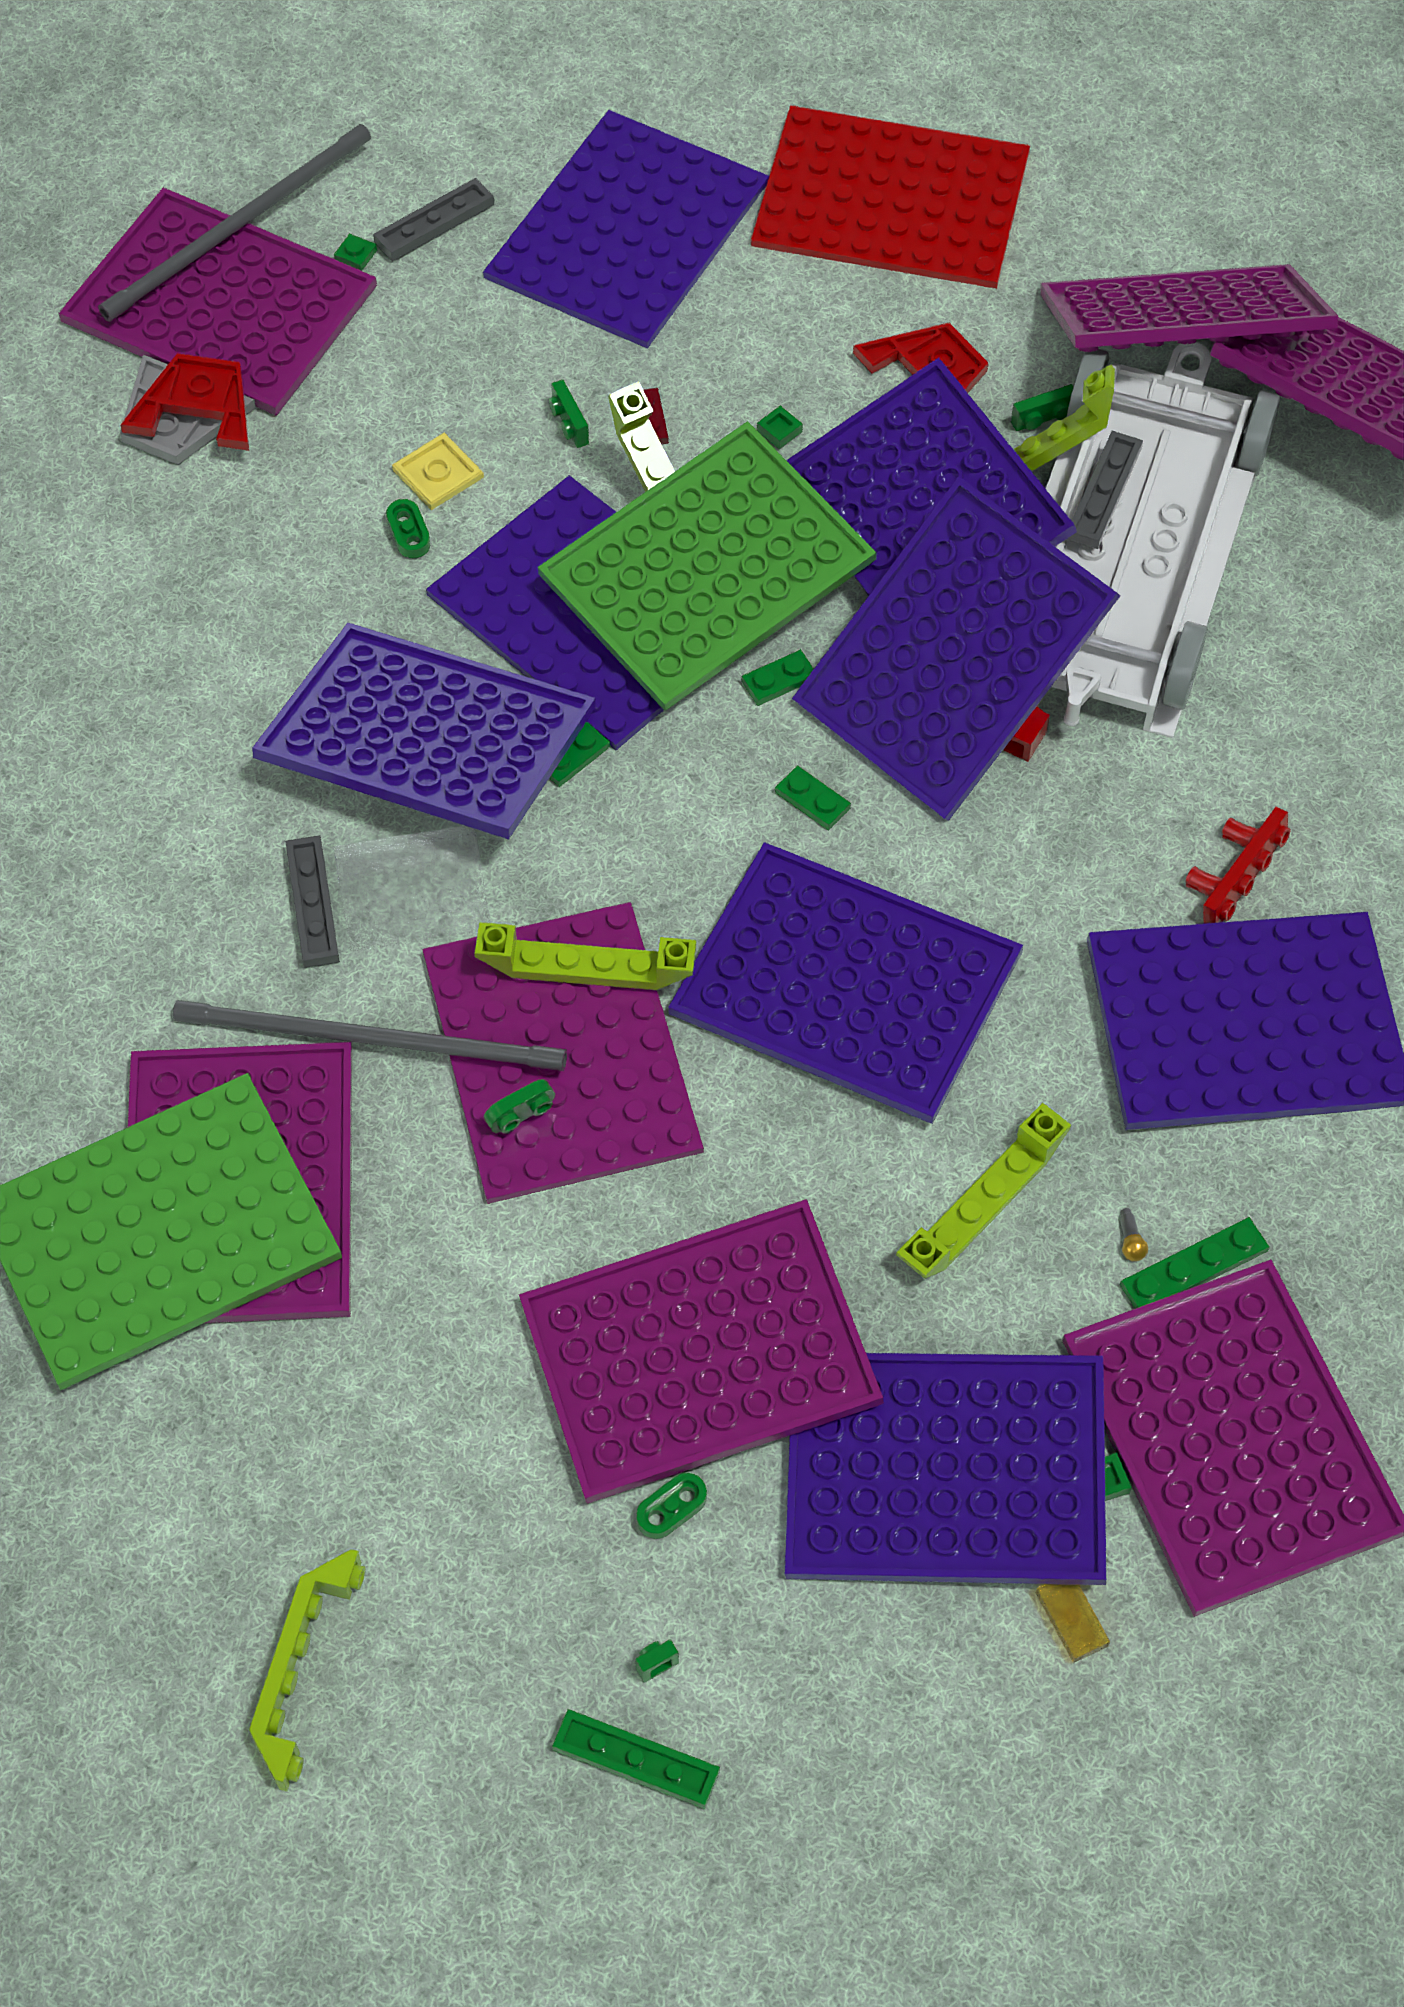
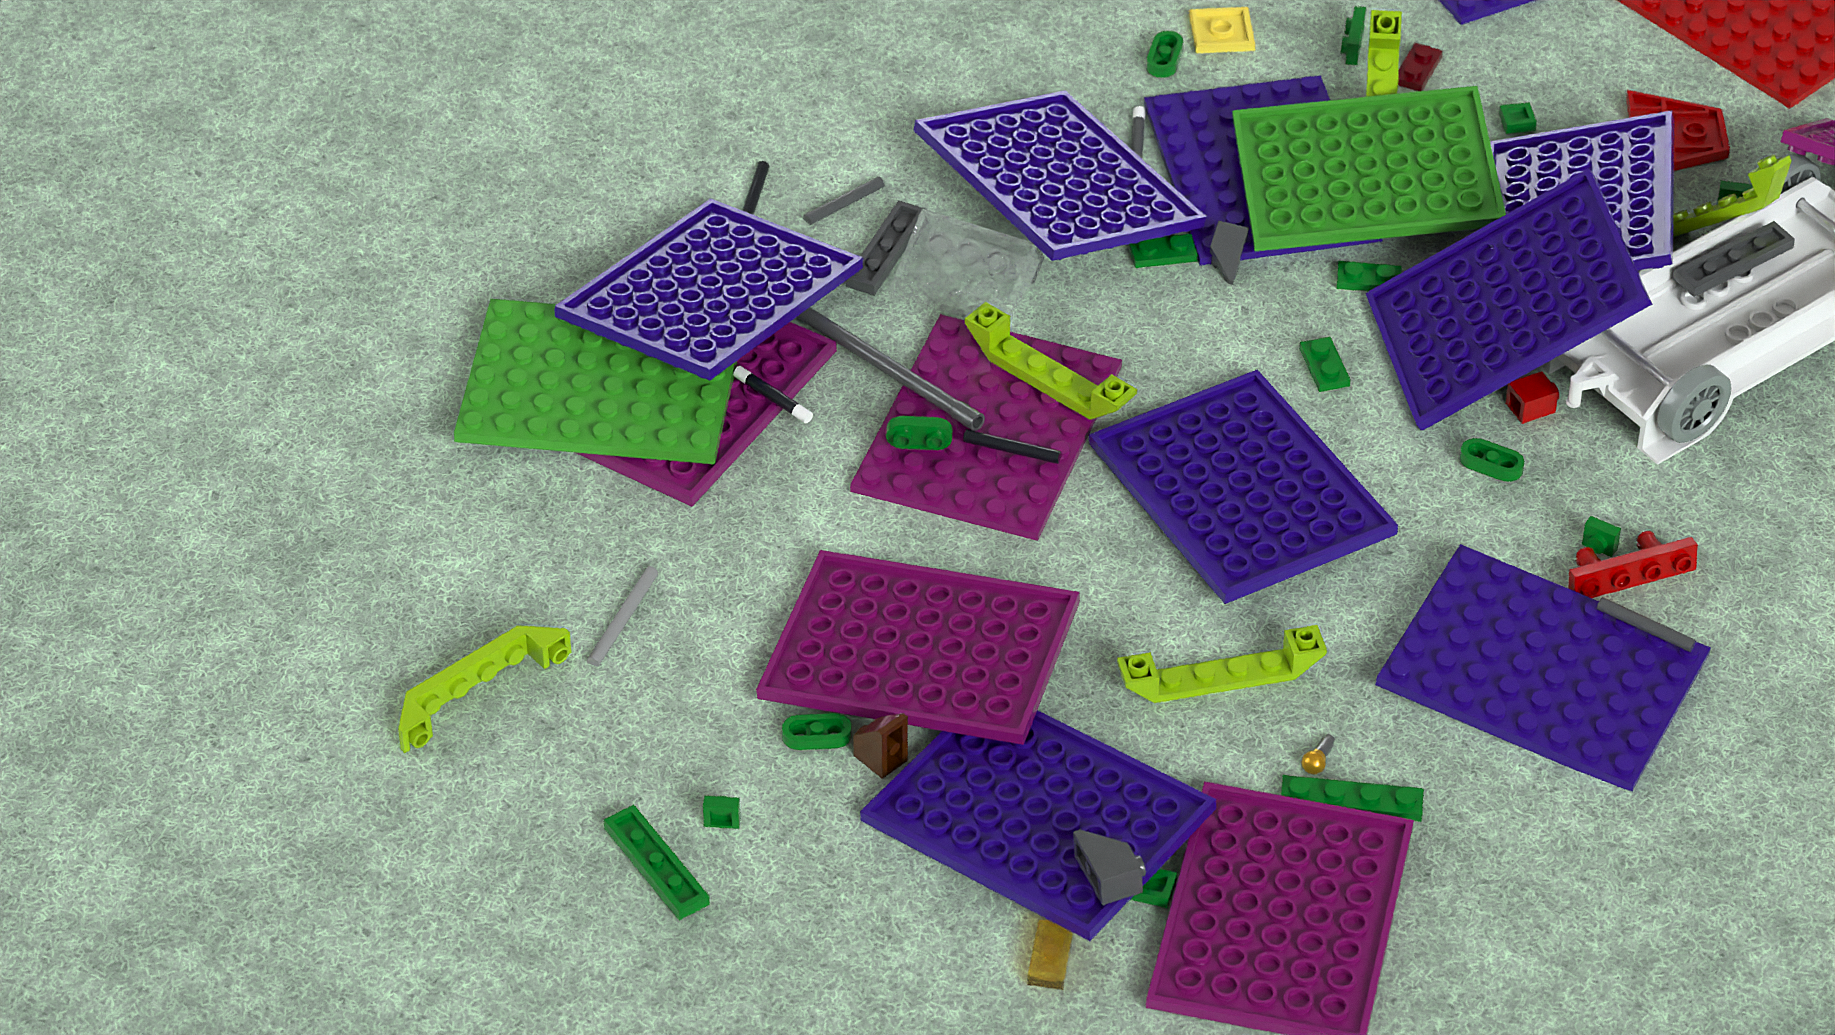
camera: 35 degrees right, 15 degrees down
(137, 925) = (756, 187): none -> black bar
(191, 1062) = (709, 288): none -> dark purple plate
(226, 868) = (844, 200): none -> dark grey bar
(339, 1142) = (773, 394): none -> black bar
(381, 1489) = (622, 616): none -> light grey bar
(447, 630) = (1138, 130): none -> dark grey bar
(612, 1065) = (1012, 446): none -> black bar
(637, 721) = (1228, 248): none -> dark grey slope
(747, 1483) = (883, 744): none -> reddish brown slope
(1036, 816) = (1493, 461): none -> green plate
(1077, 1500) = (1109, 866): none -> dark grey slope
(1193, 849) = (1601, 536): none -> green plate
(1308, 924) = (1646, 624): none -> dark grey bar

